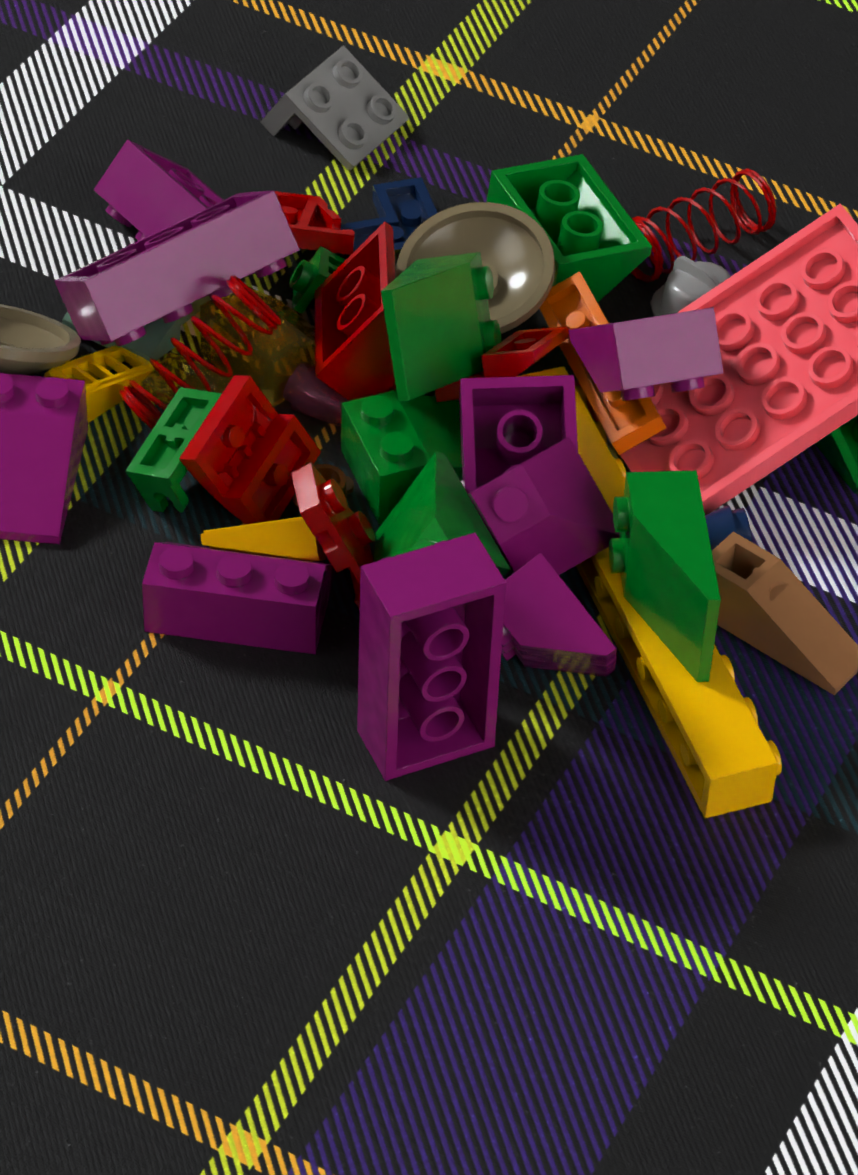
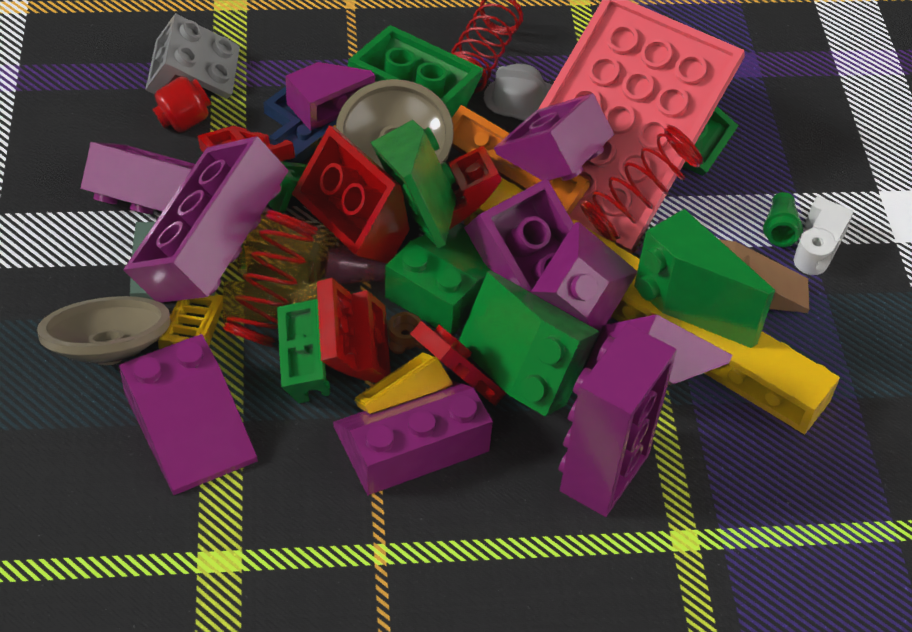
camera: 35 degrees left, 5 degrees up
(280, 150) = (181, 104): none -> red head
(437, 184) = (322, 90): none -> magenta slope
(784, 414) = (686, 150): none -> red piece

